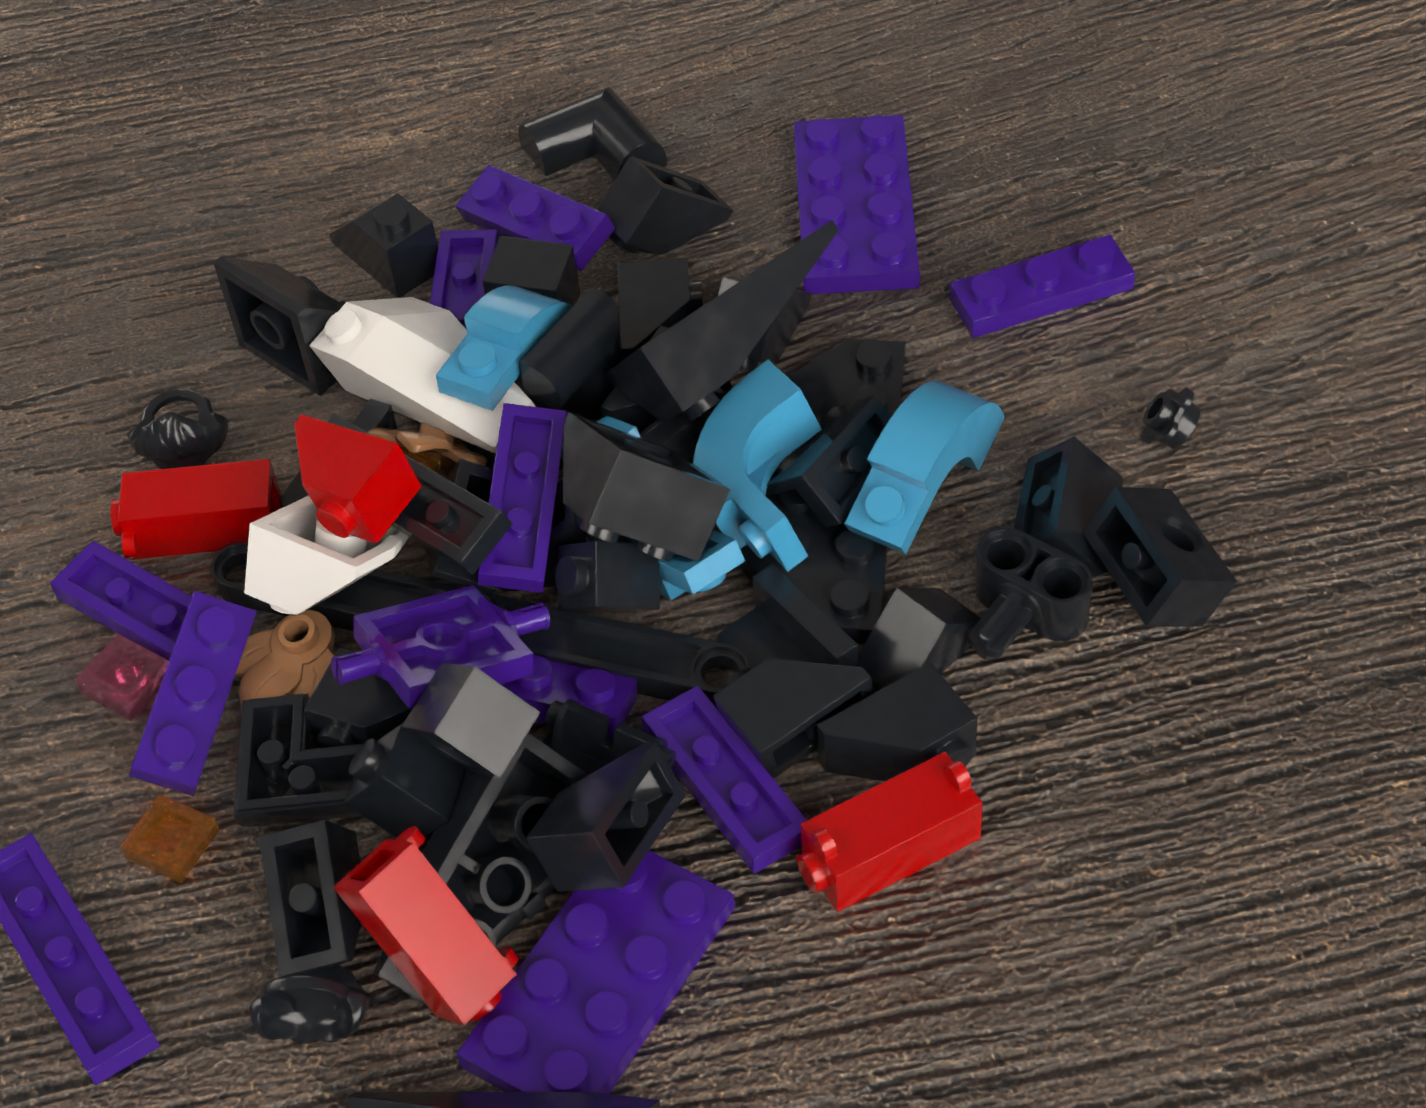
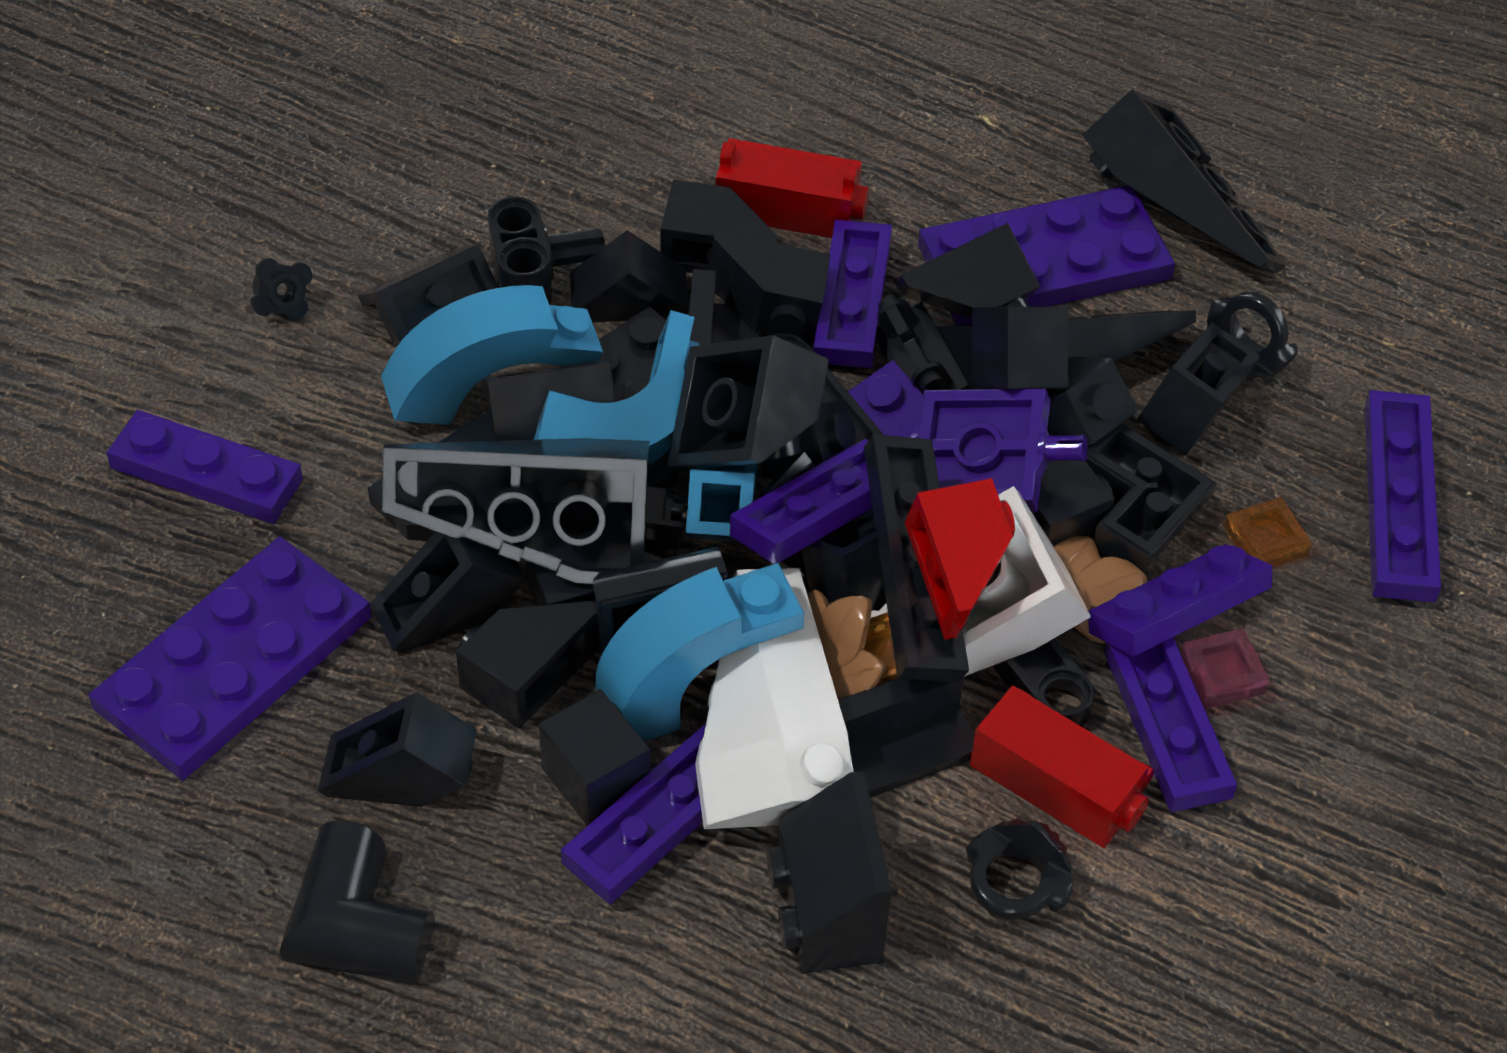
camera: 145 degrees left, 0 degrees up
(391, 244) = (663, 936): black slope -> none
(427, 930) = (1151, 283): brick -> none
(534, 213) = (514, 839): dark purple plate -> none
(1159, 557) = (428, 200): black brick -> none

